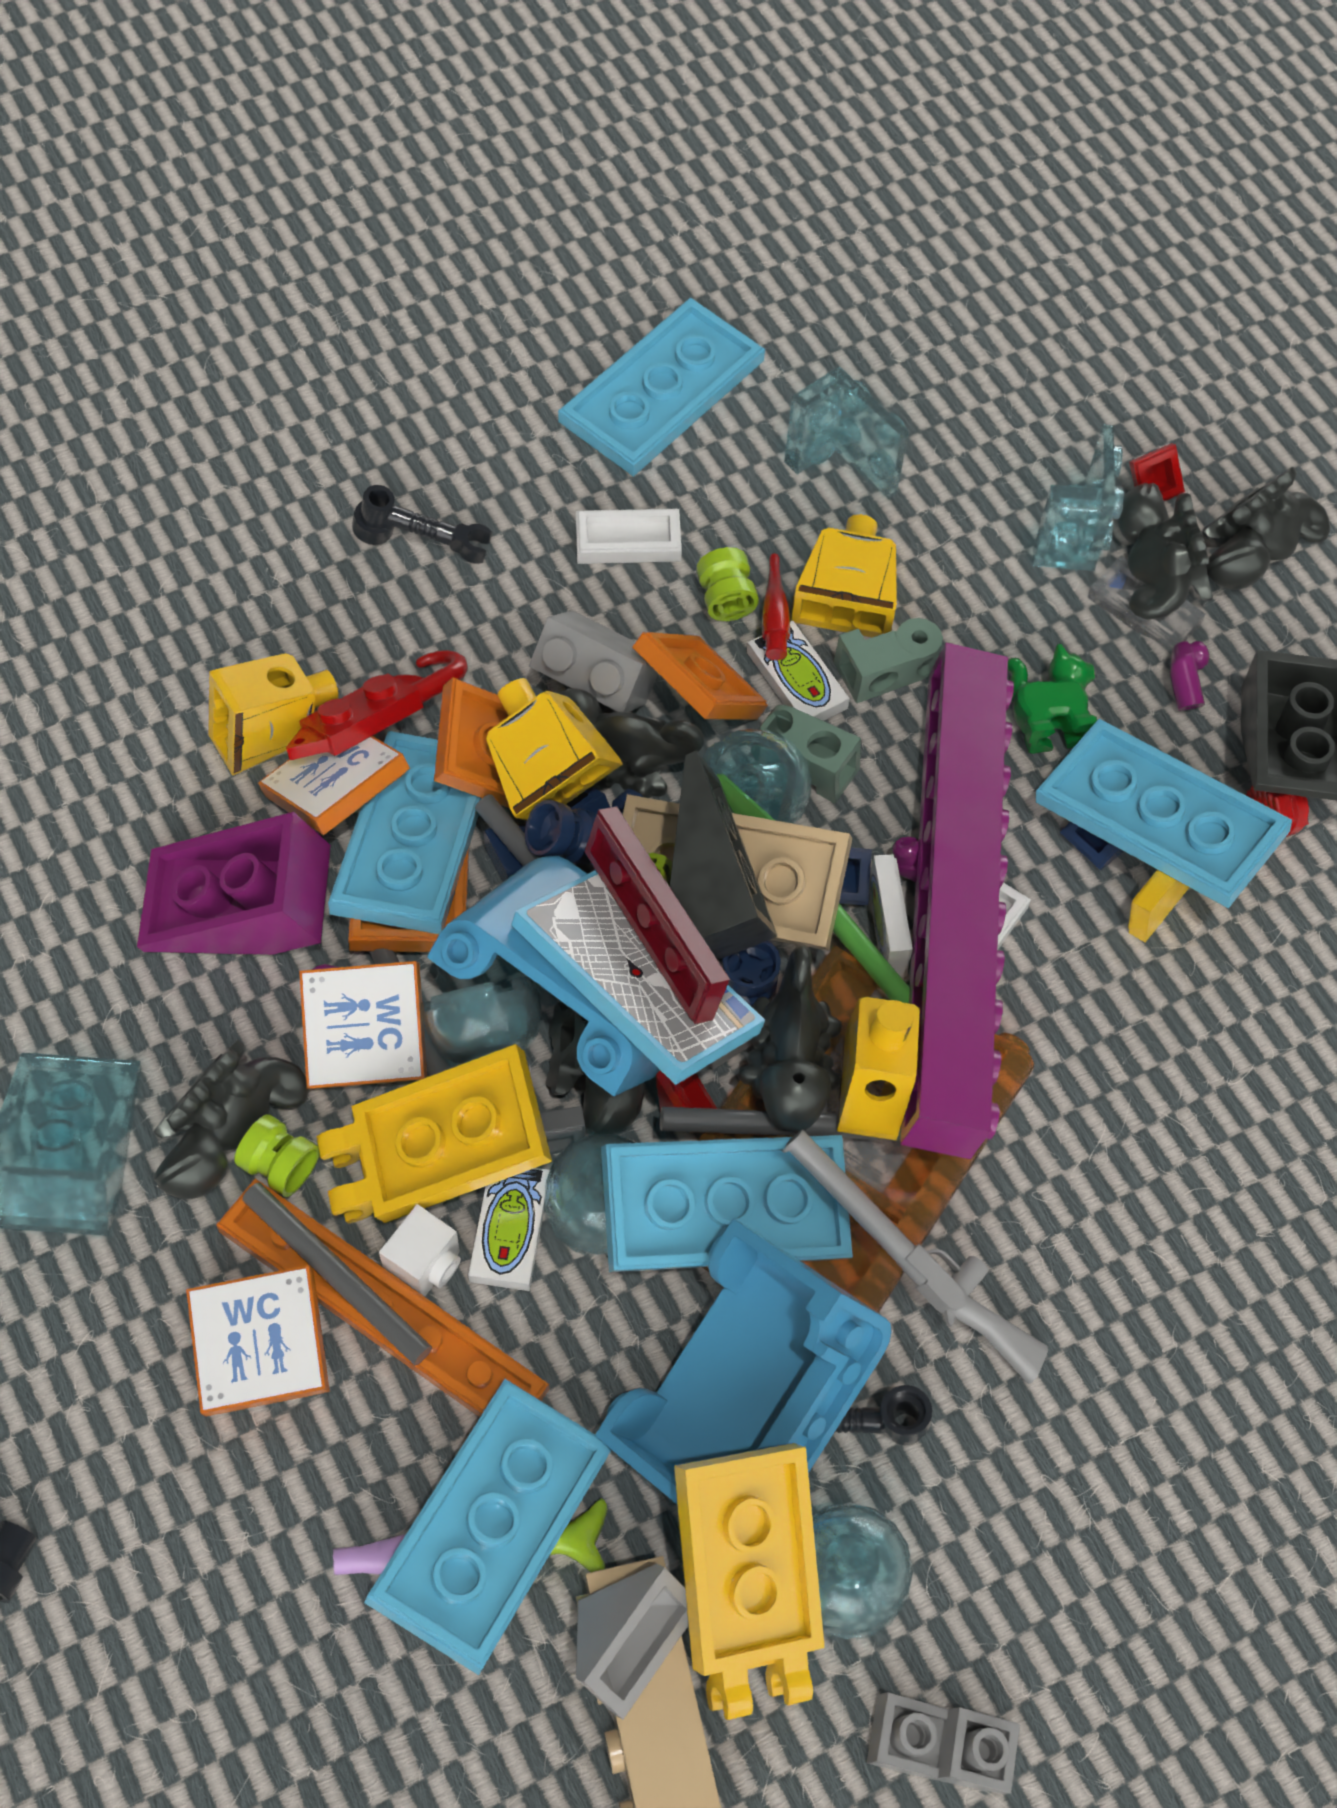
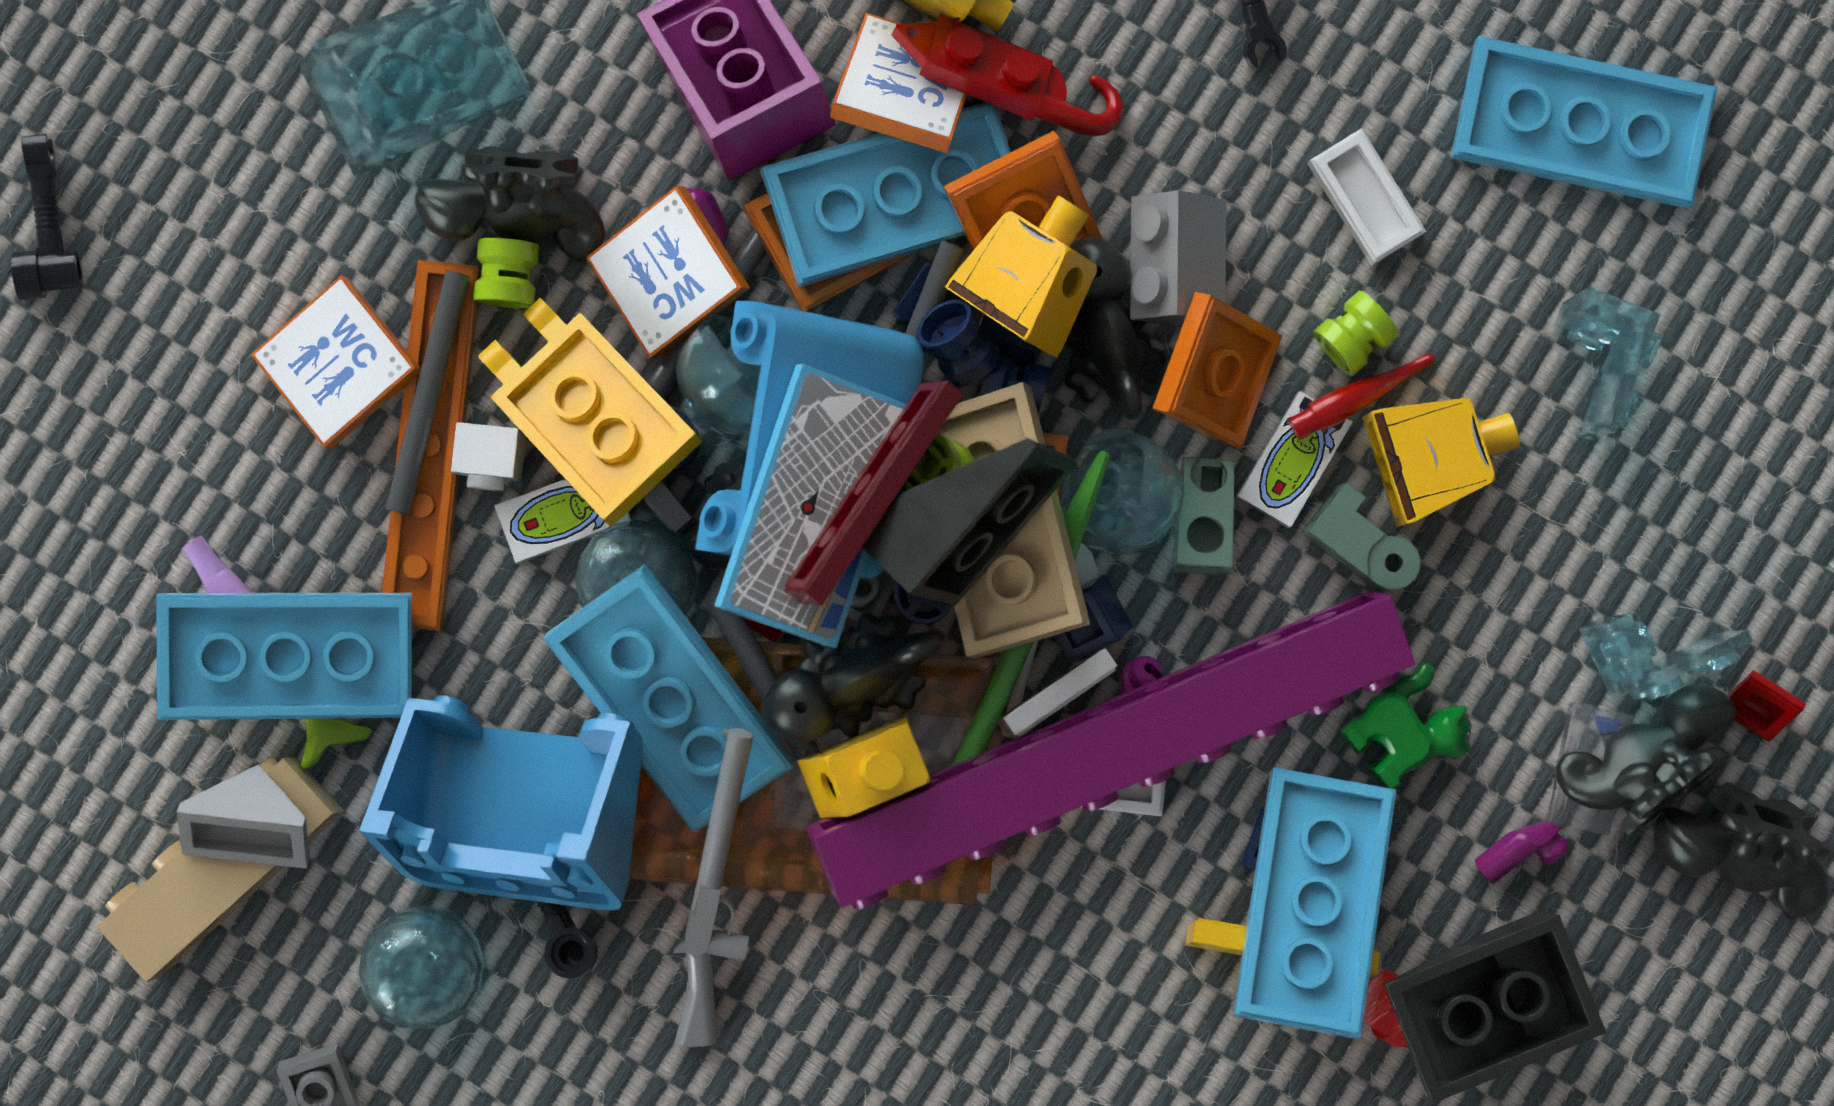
camera: 65 degrees right, 25 degrees up
(750, 1573) = (351, 894): yellow tile -> none

